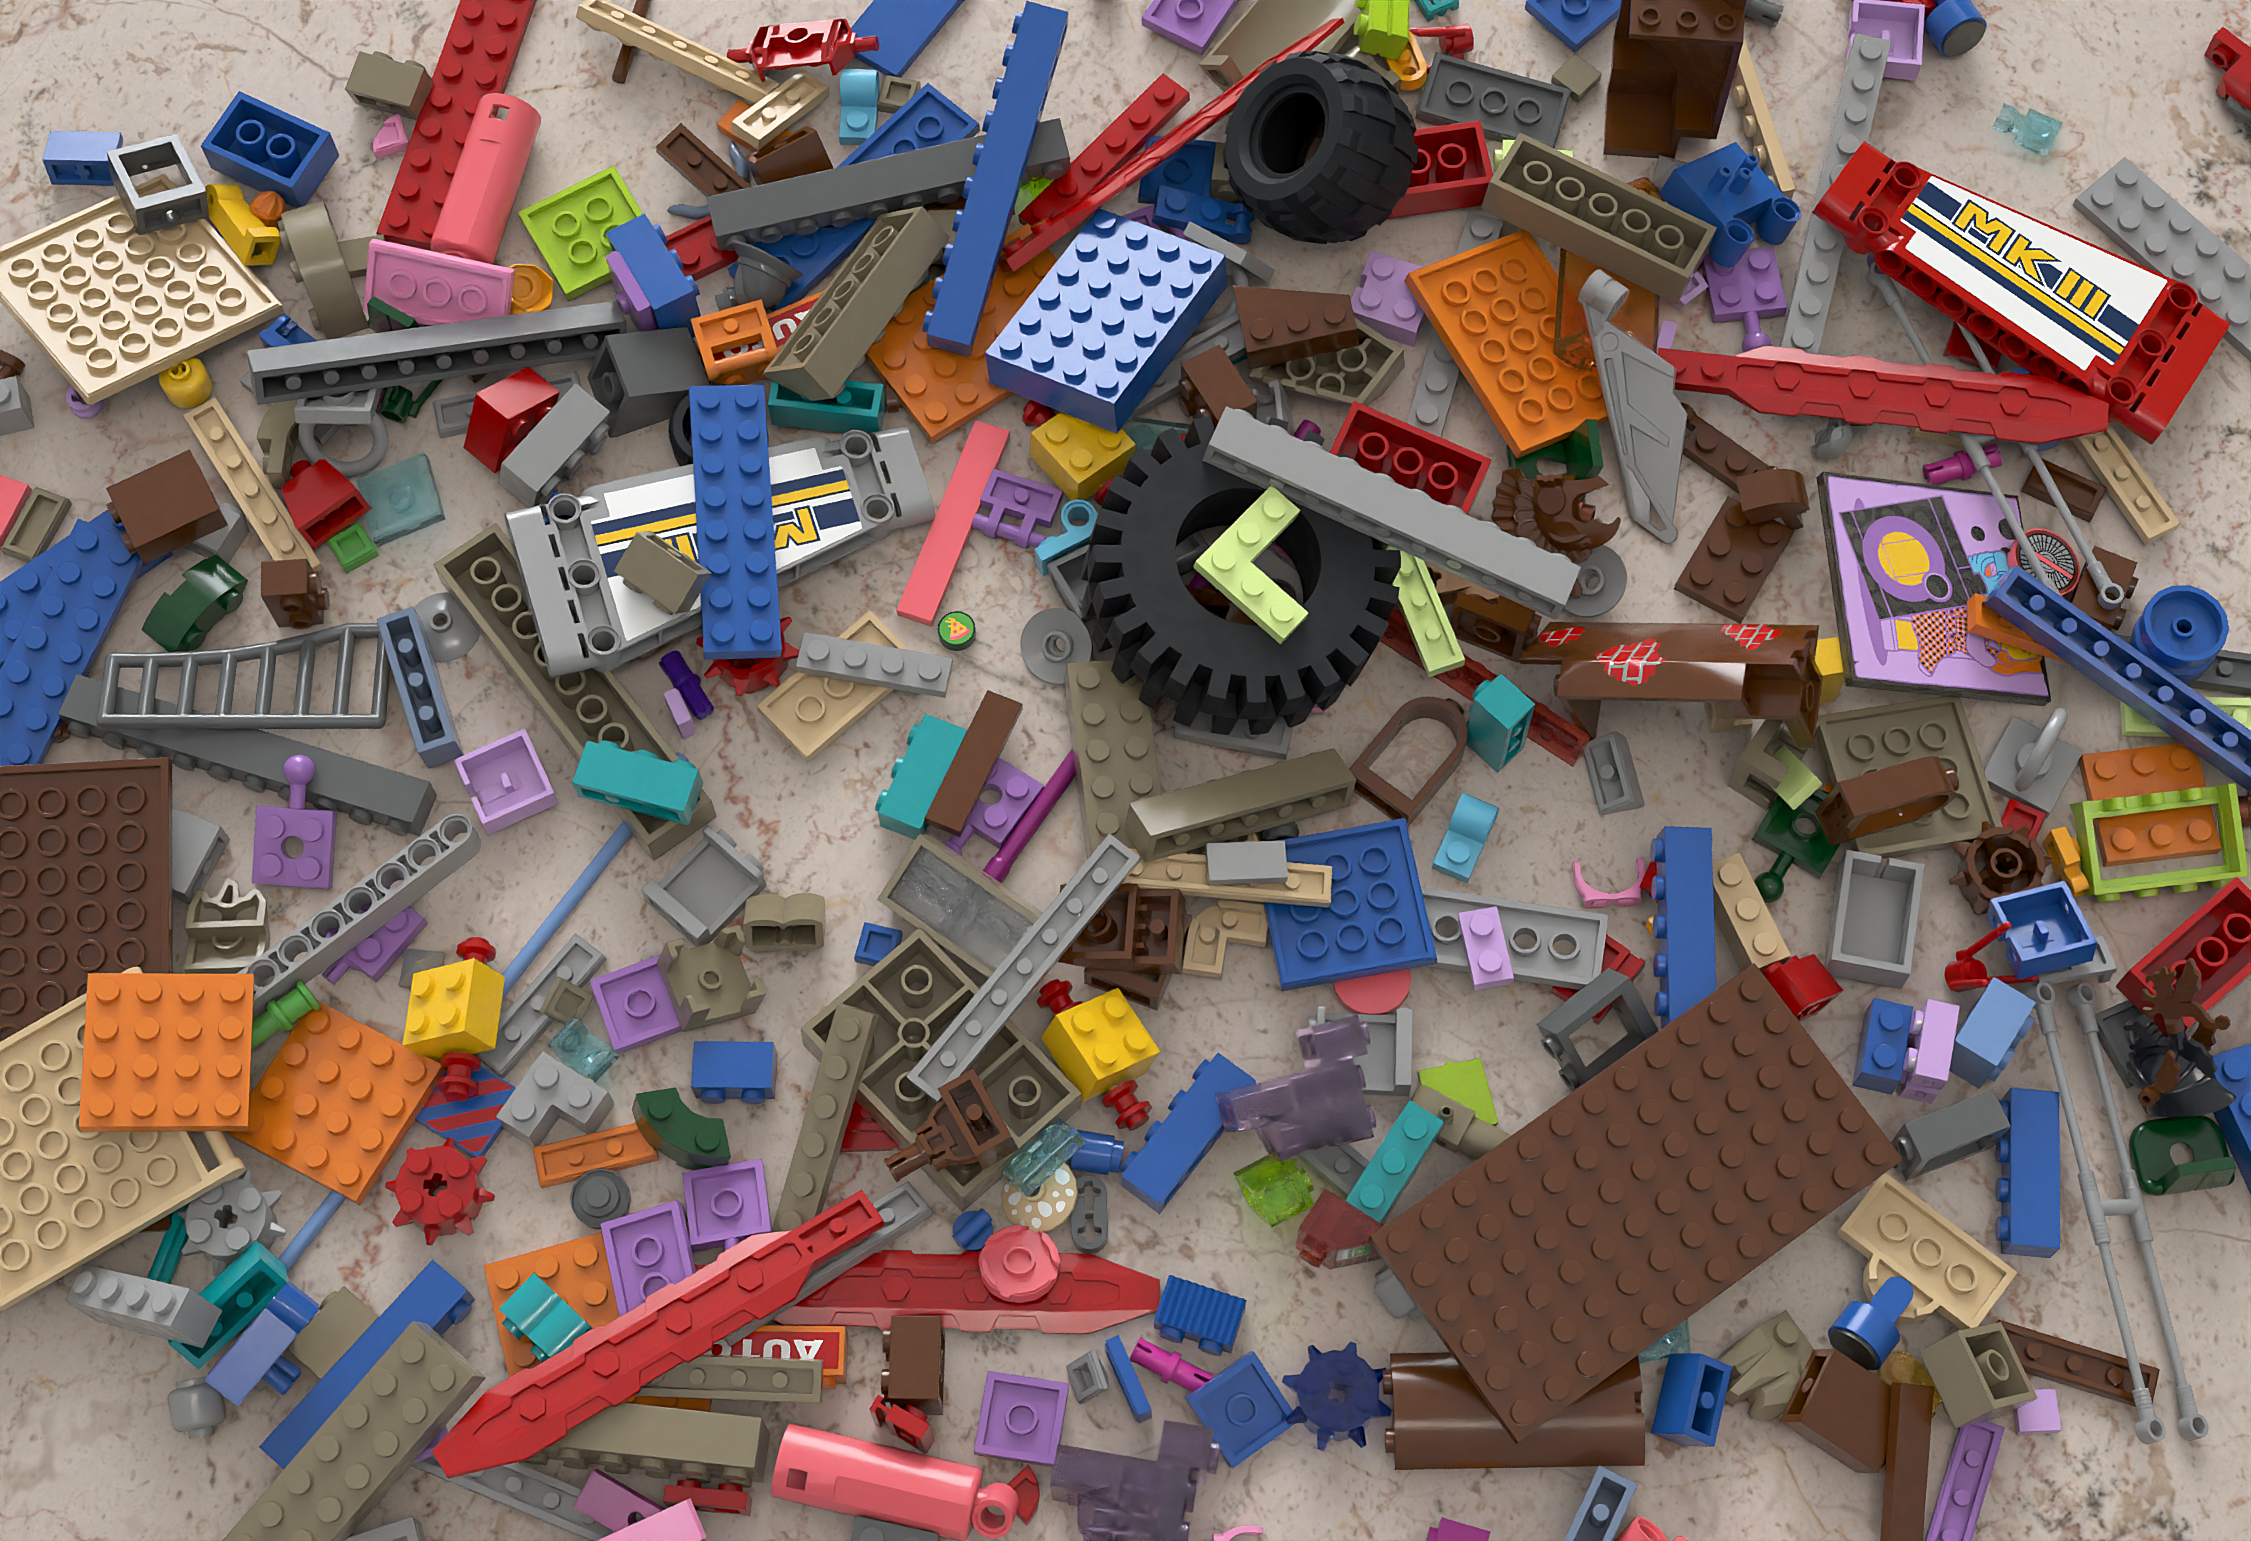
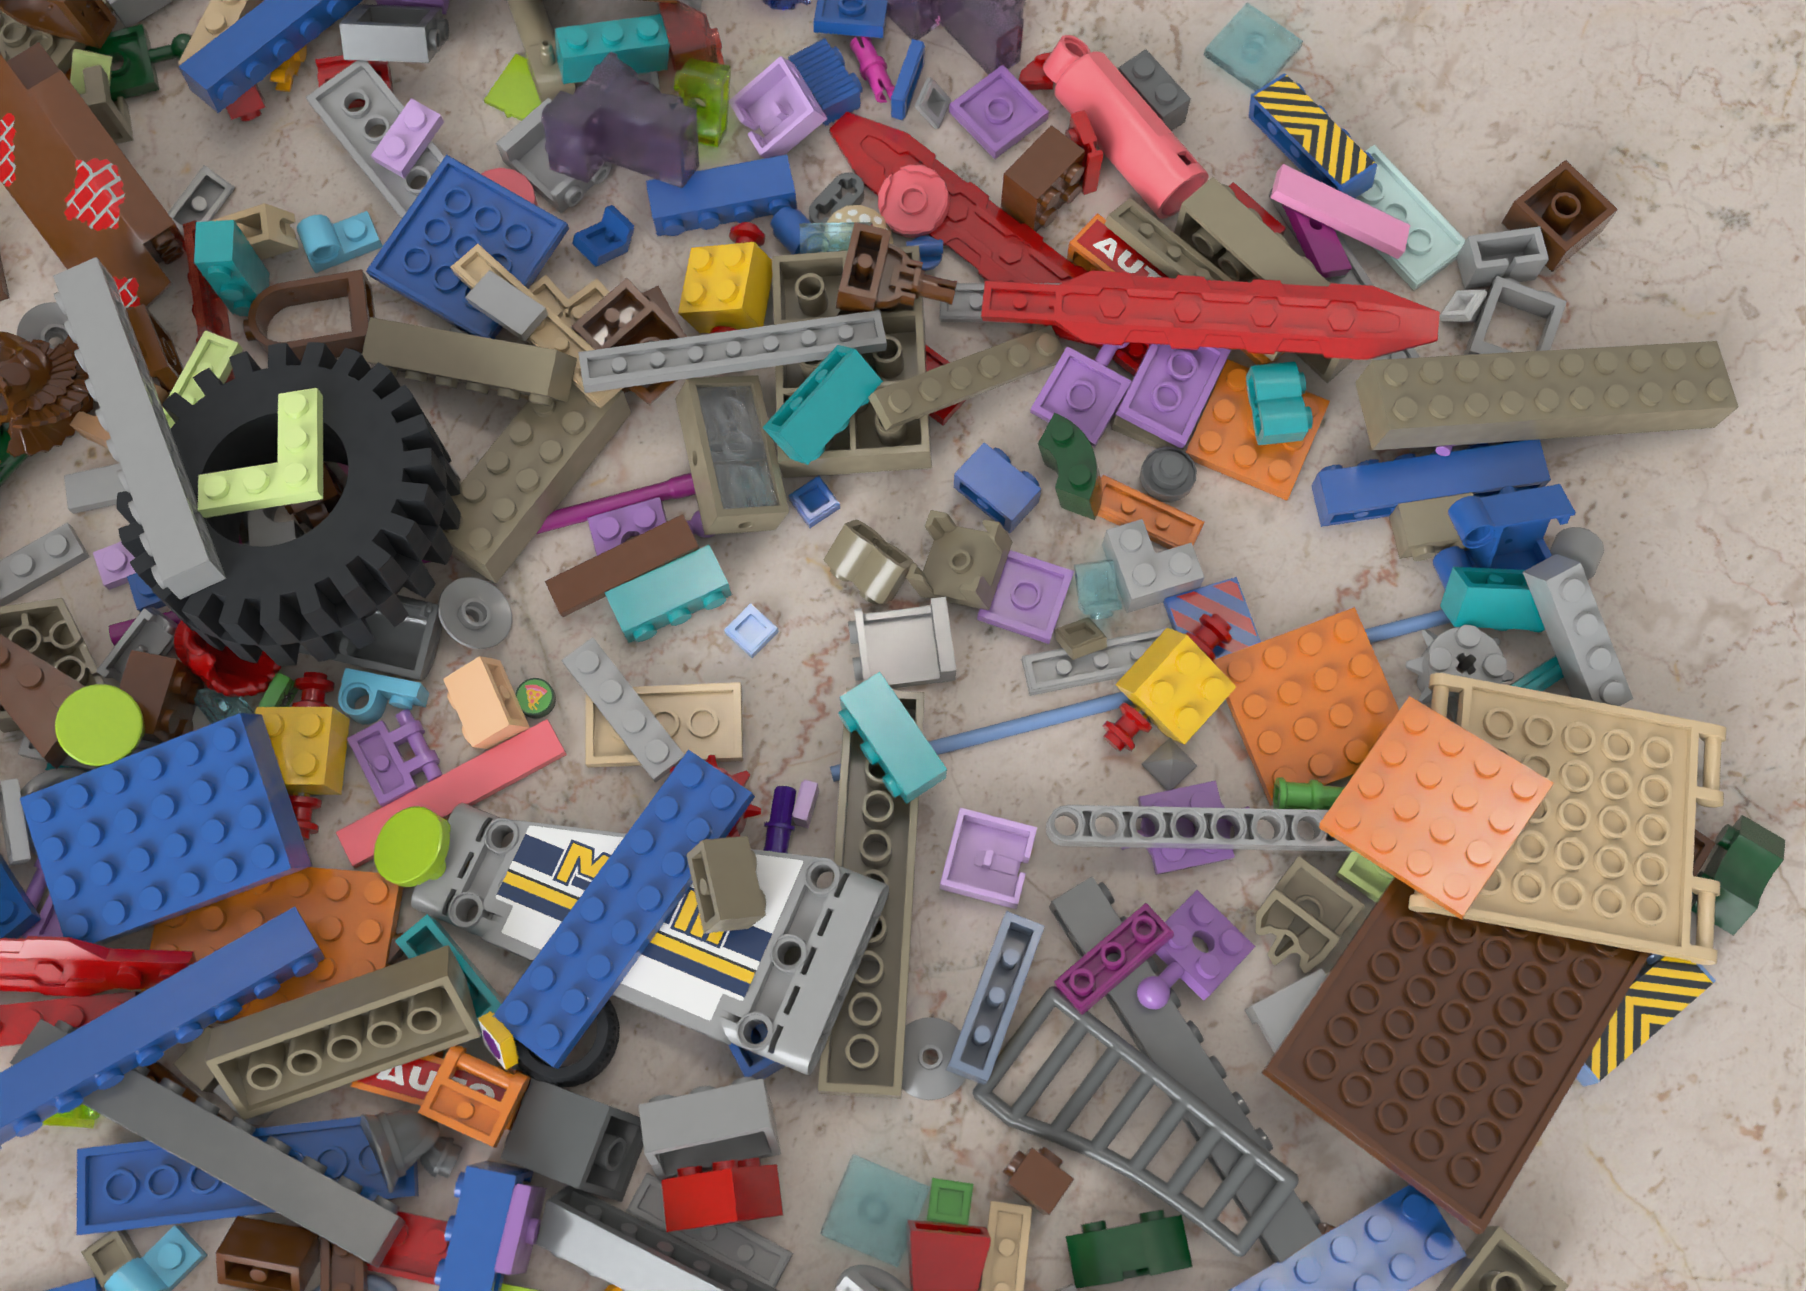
camera: 140 degrees left, 5 degrees up
(343, 791) = (1096, 976): none -> magenta tile
(451, 1208) = (1304, 572): red brick -> none
(748, 379) = (498, 1040): none -> yellow tile
(838, 808) = (751, 630): none -> light blue tile
(912, 981) = (823, 404): none -> teal brick
(934, 452) = (412, 847): none -> lime tile
(983, 591) = (485, 703): none -> light nougat brick
(1203, 1251) = (781, 108): none -> lavender piece
(1212, 330) = (99, 725): none -> lime tile
(1249, 1013) = (605, 239): none -> blue bracket
(1412, 456) = (76, 503): red brick -> none
(1514, 774) = (266, 229): none -> tan brick
(1596, 899) = (276, 116): bright pink cap -> none

